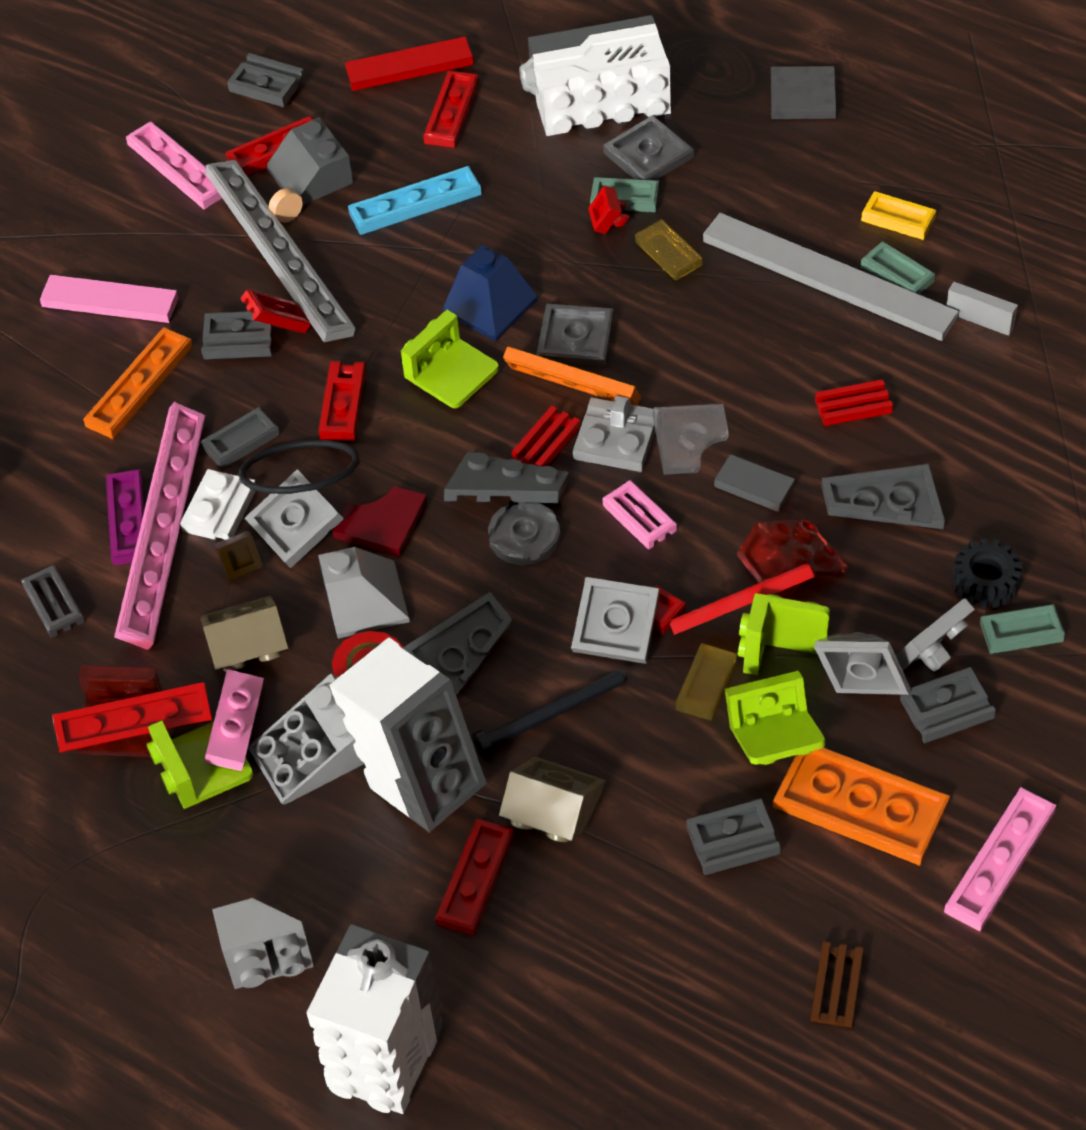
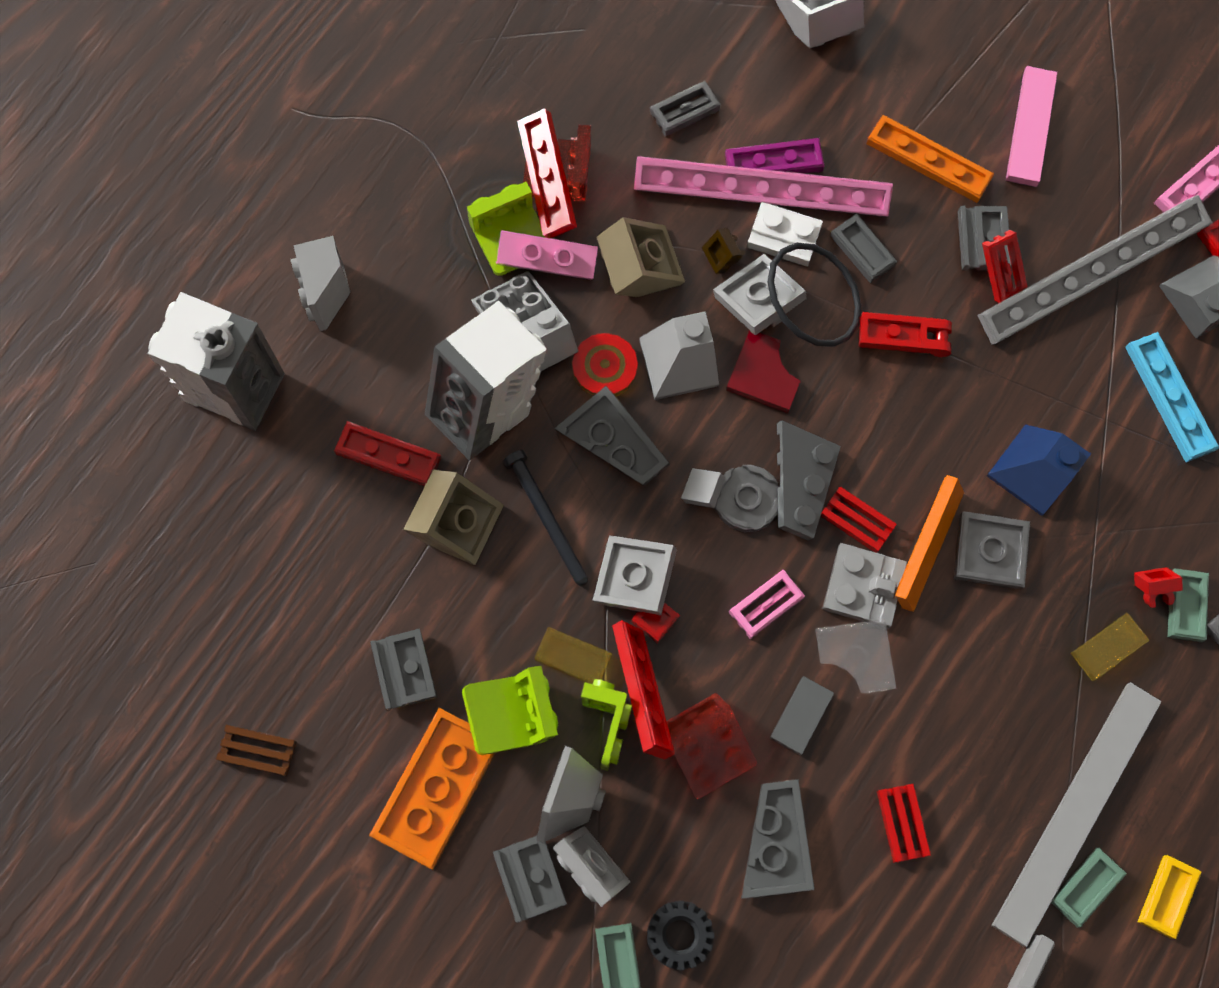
camera: 85 degrees right, 20 degrees up
(286, 205) = (1153, 272): light nougat tile -> none
(445, 363) = (947, 427): lime bracket -> none
(515, 566) = (703, 488): none -> light grey tile
(1000, 859) = (368, 910): bright pink tile -> none

